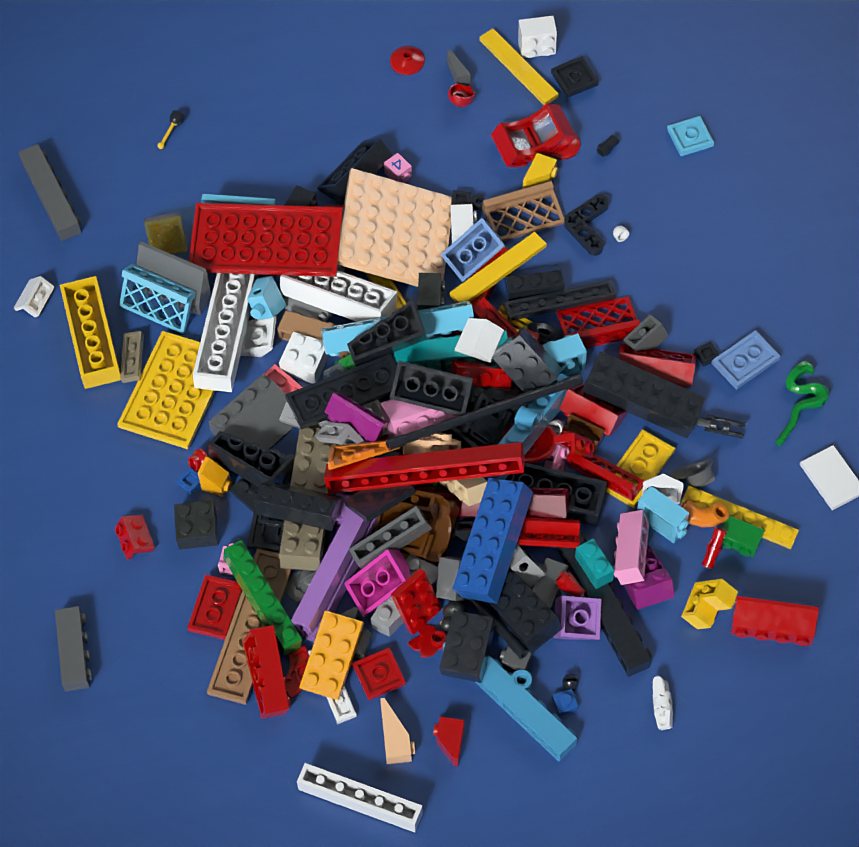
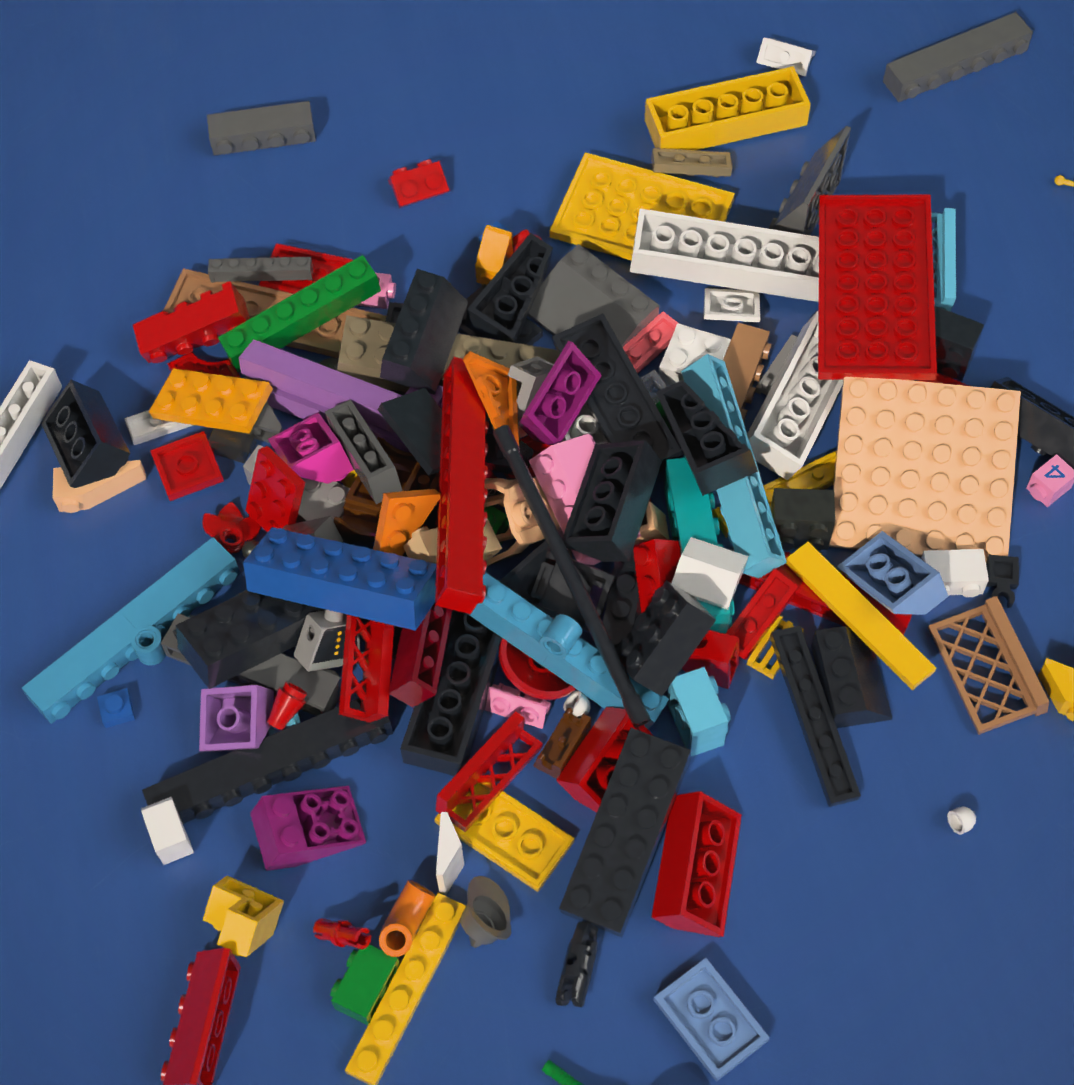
camera: 90 degrees right, 0 degrees up
(158, 286) = (785, 174): medium azure fence -> none
(166, 232) = (901, 176): clear yellow slope -> none
(195, 524) = (427, 244): pearl dark grey brick -> none
(214, 633) = (260, 269): none -> dark grey piece
(265, 299) = (781, 301): medium azure torso -> none
(361, 737) = (84, 436): none -> black slope
(449, 737) = (76, 553): red slope -> none
(453, 503) = (401, 516): none -> orange wing
(467, 646) = (193, 559): black brick -> none
(546, 332) = (760, 689): black dish -> none
(570, 684) = (152, 716): black hinge -> none
(576, 443) = (530, 722): red bracket -> none
(581, 223) = (976, 756): black beam -> none
(594, 563) = (313, 737): teal brick -> none
(601, 334) = (754, 789): red fence -> none
(631, 547) = (344, 799): bright pink brick -> none
(646, 335) = (747, 847): dark grey slope -> none
(657, 650) = (166, 831): none -> white slope
(662, 703) = (92, 843): white hinge -> none
(664, 514) = (402, 853): medium azure window -> none
(706, 353) = (724, 954): black tile -> none

